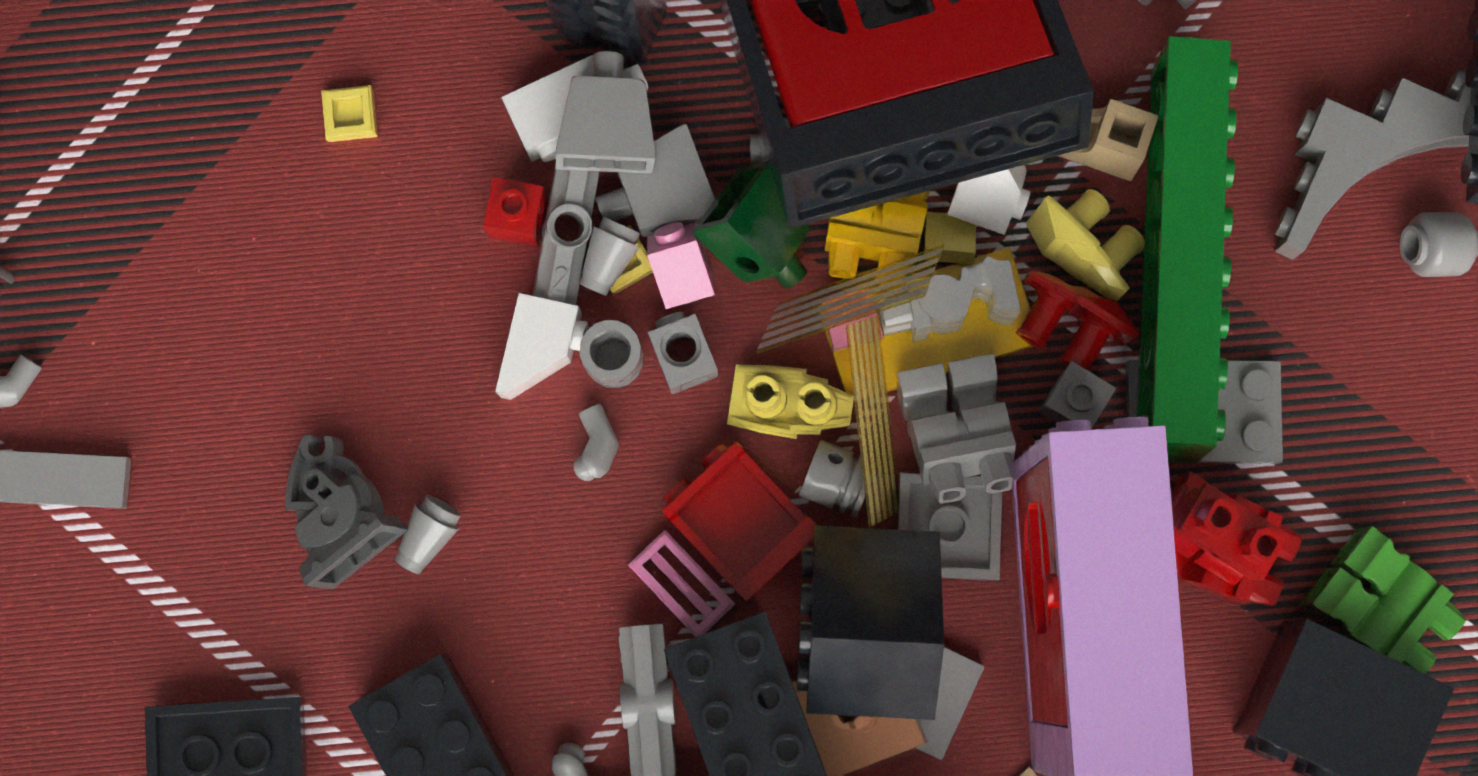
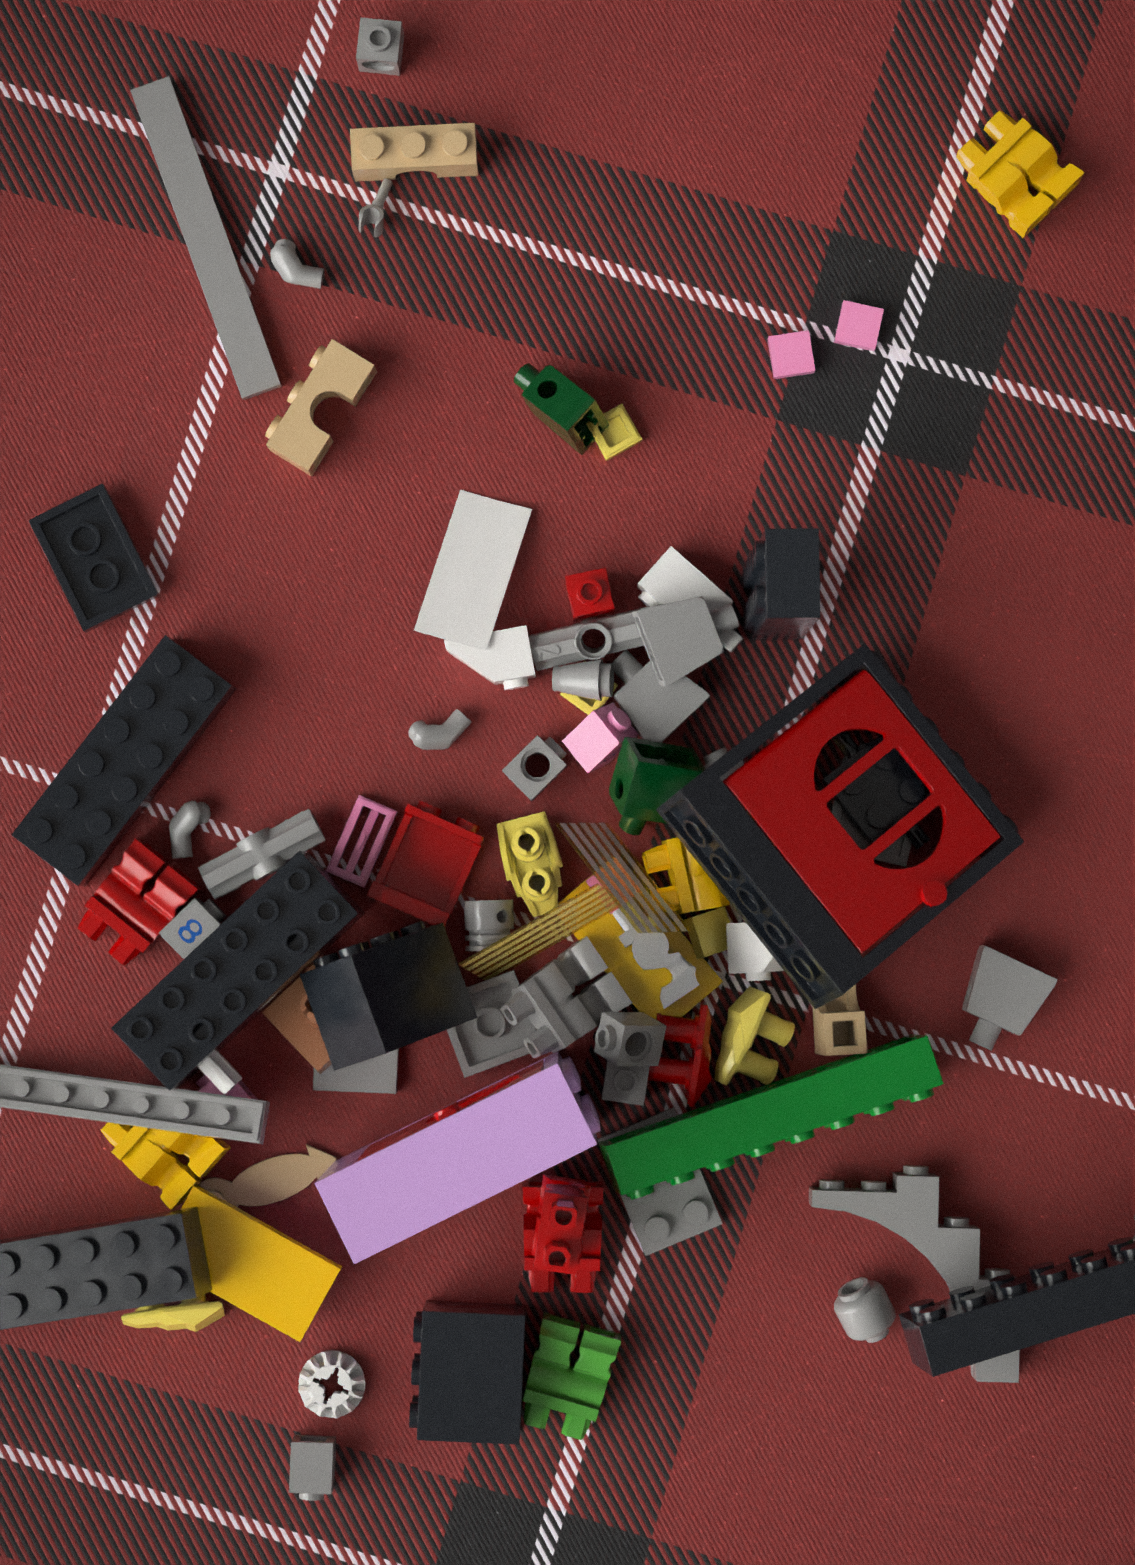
camera: 65 degrees right, 5 degrees up
(144, 389) = (334, 374): none -> tan arch
(291, 152) = (560, 405): none -> dark green torso
(336, 516) = (304, 561): dark grey piece -> none
(428, 532) = (320, 634): light grey cone -> none
(432, 329) = (473, 570): none -> white sticker
(611, 353) = (511, 714): light grey piece -> none
(1034, 370) = (629, 1038): none -> light grey brick

